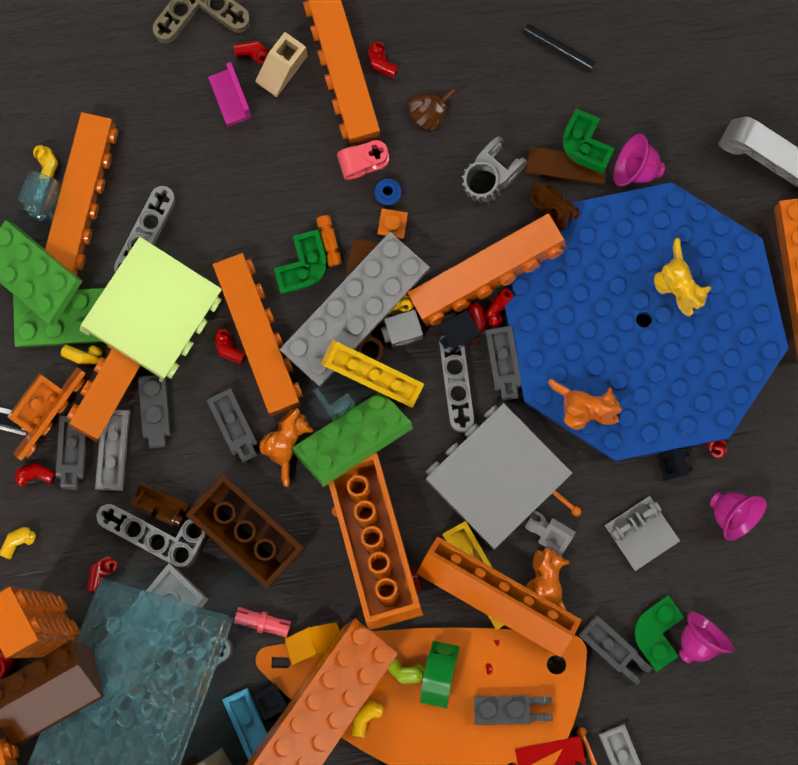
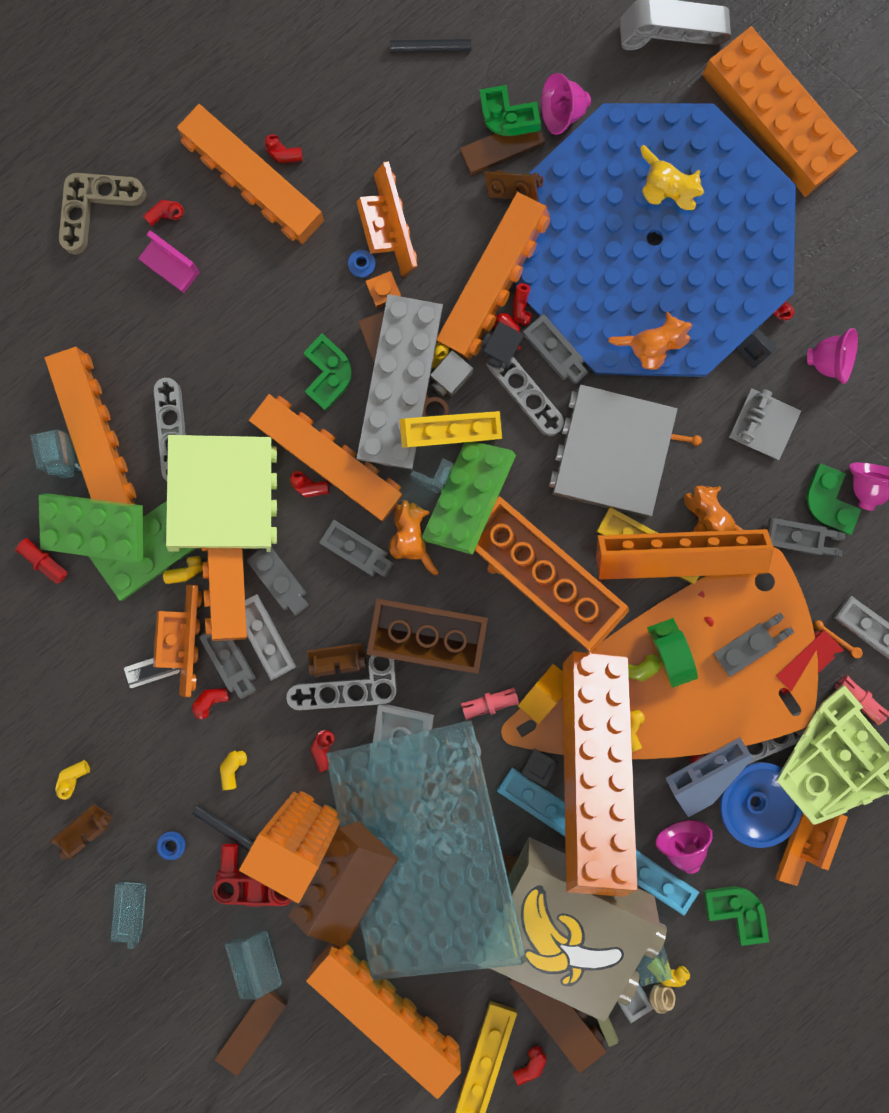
camera: 40 degrees left, 5 degrees up
(46, 159) = (40, 419): yellow arm -> none
(281, 64) = (196, 206): tan slope -> none
(329, 241) = (337, 337): orange axle -> none
(360, 159) = (319, 250): coral piece -> none
(427, 170) = (385, 221): none -> orange bracket
(429, 109) = (352, 168): reddish brown piece -> none
(486, 162) = (442, 182): light grey piece -> none
(553, 534) = (691, 473): light grey plate -> none

